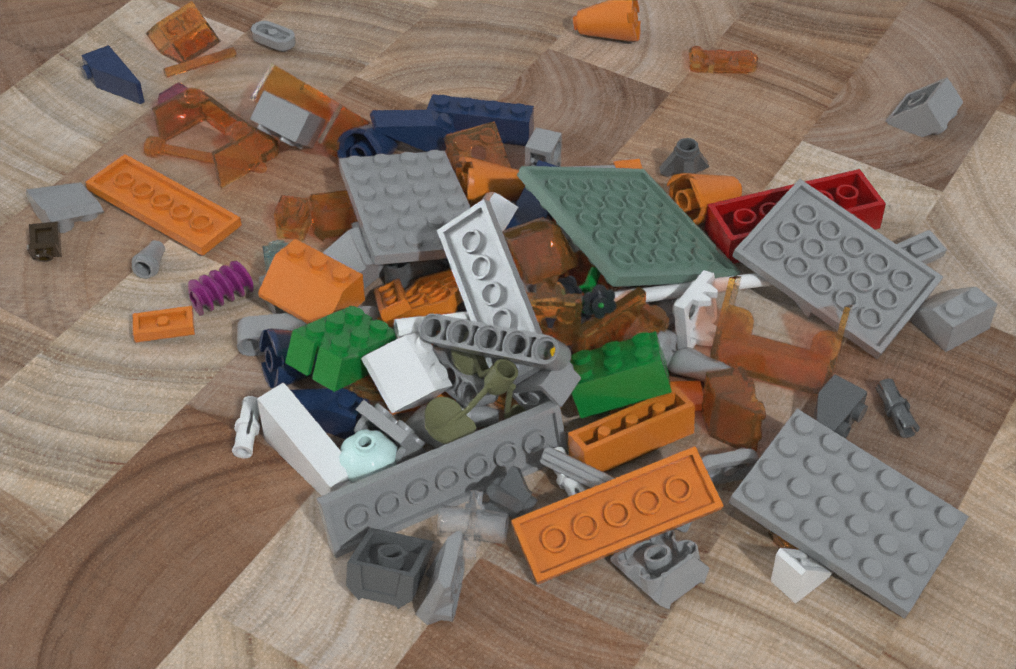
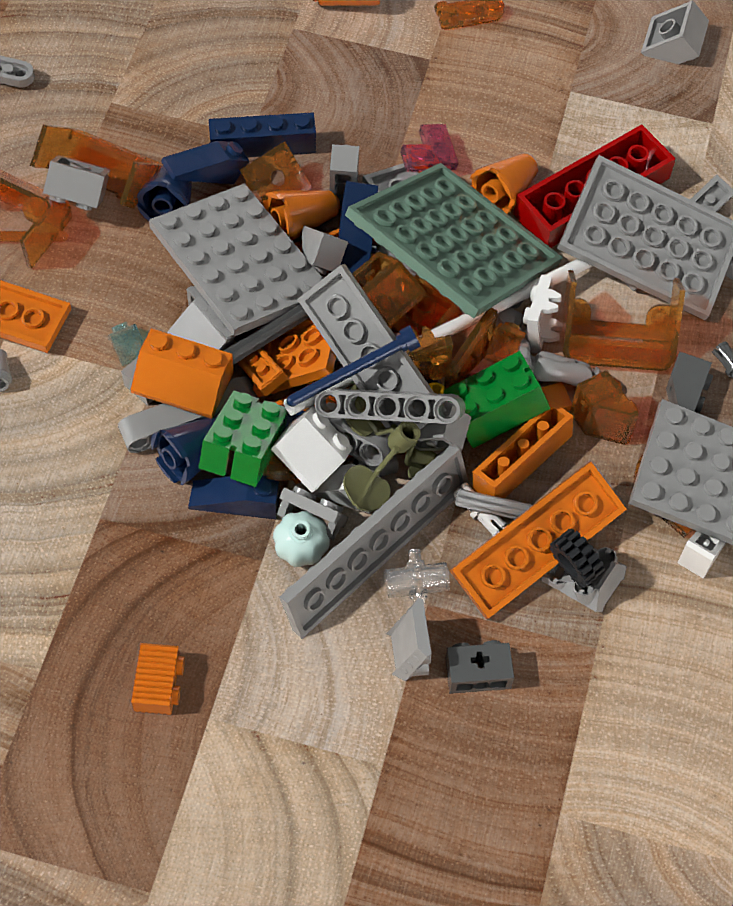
camera: 20 degrees left, 15 degrees up
(163, 324) = (44, 440): orange plate -> none
(169, 555) = (156, 678): none -> orange brick
(218, 285) = (81, 386): magenta piece -> none
(246, 428) = (171, 530): white pin -> none
(292, 218) = (122, 292): clear orange brick -> none
(301, 440) = (237, 539): white slope -> none
(331, 214) = (158, 276): clear orange slope -> none
(388, 567) = (358, 638): dark grey slope -> none
(405, 273) = (267, 333): none -> dark grey axle
(507, 627) = (466, 676): none -> dark grey brick
(510, 494) = (438, 542): dark grey rock -> none
(525, 281) = (404, 341): none -> dark blue piece
(596, 298) = (463, 334): black plant -> none
(646, 156) = (435, 149): none -> clear pink plate
(648, 535) = (577, 557): none -> black tyre
(684, 159) = (475, 143): dark grey rock -> none
(730, 465) = (617, 462): light grey plate -> none

